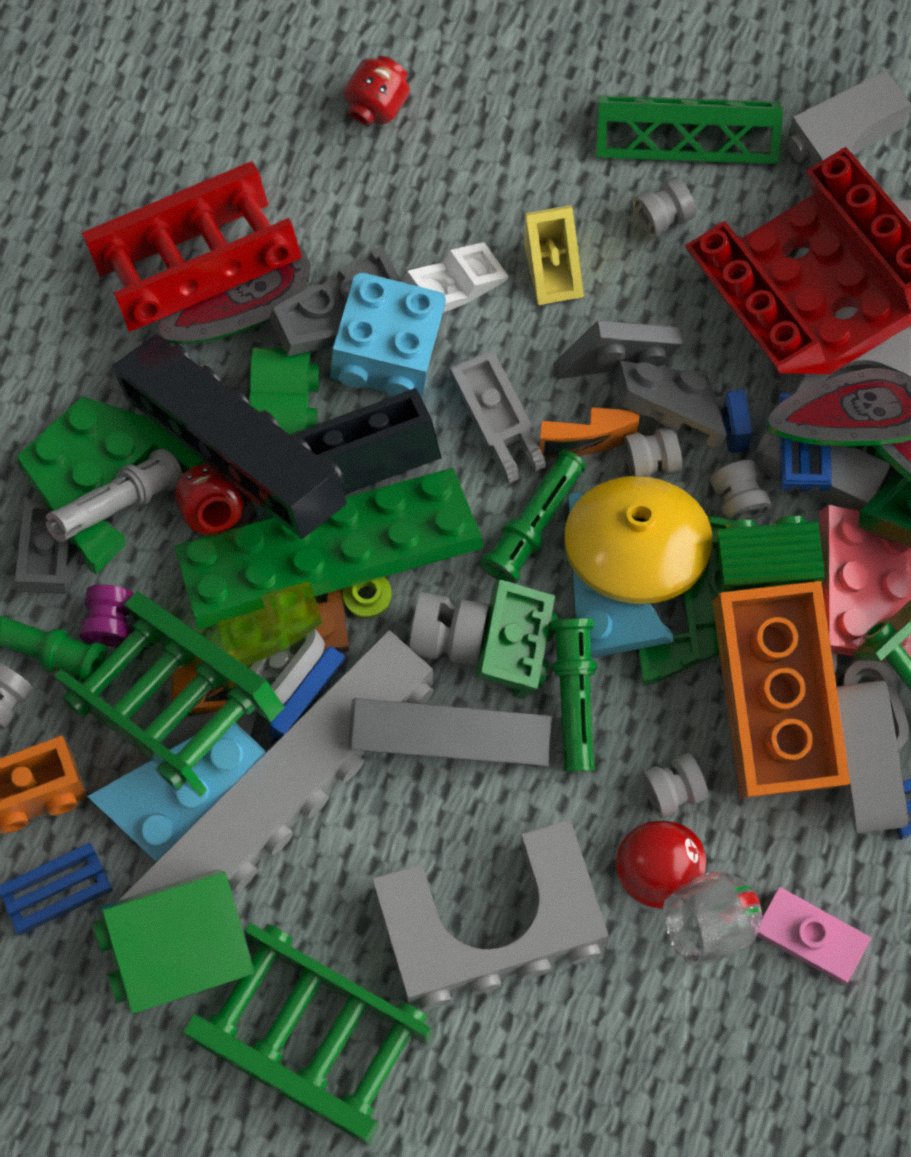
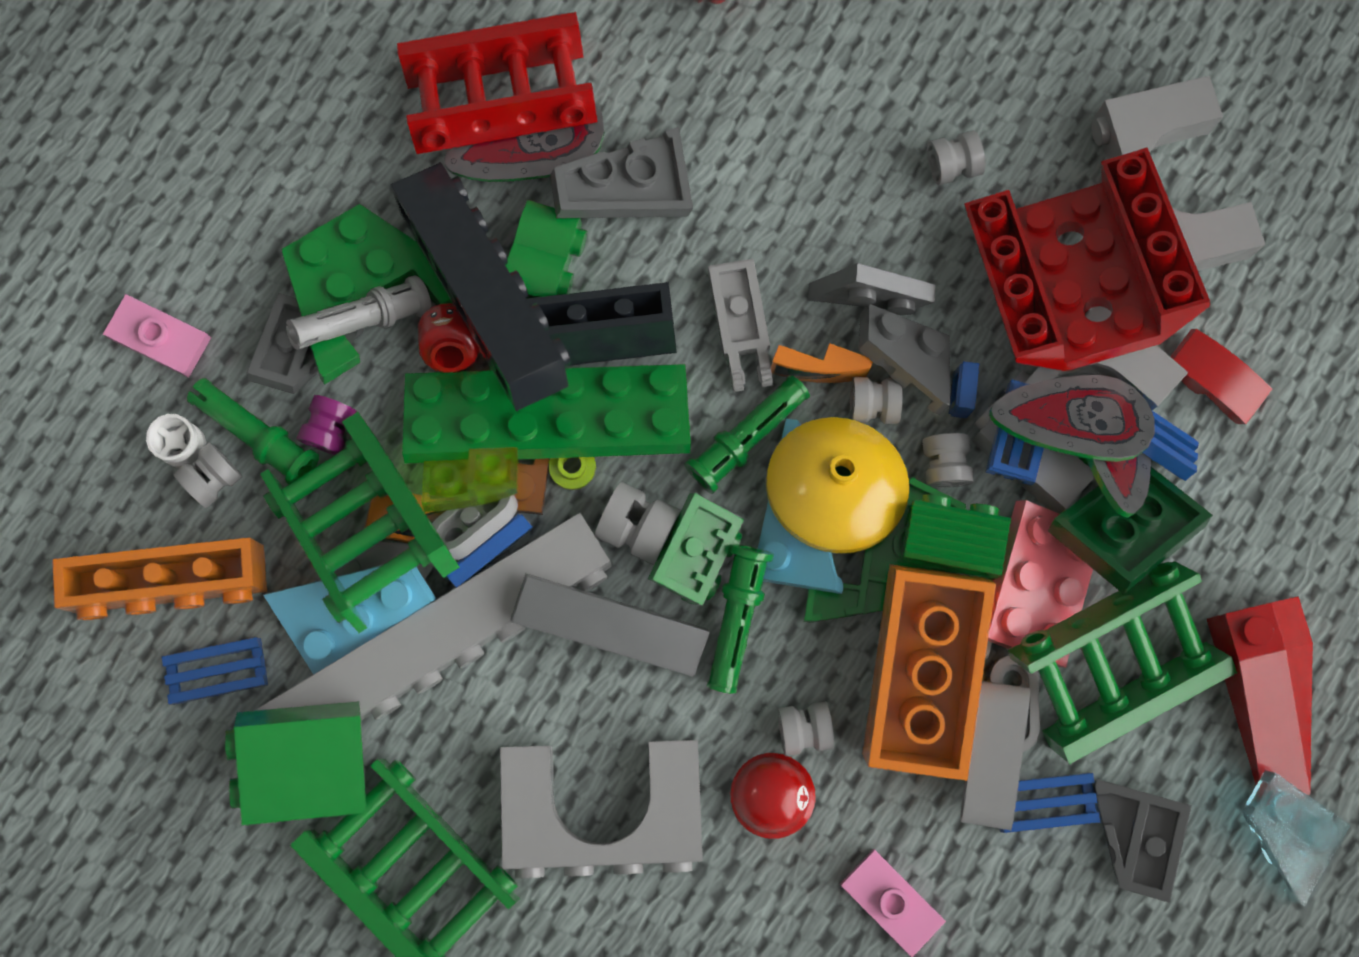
camera: 10 degrees right, 10 degrees up
(386, 335) = (657, 219): medium azure bracket -> none
(461, 276) = (737, 179): white slope -> none
(553, 254) = (836, 179): light yellow slope -> none
(689, 111) = (1007, 67): green fence -> none
(725, 914) = (814, 867): clear helmet -> none

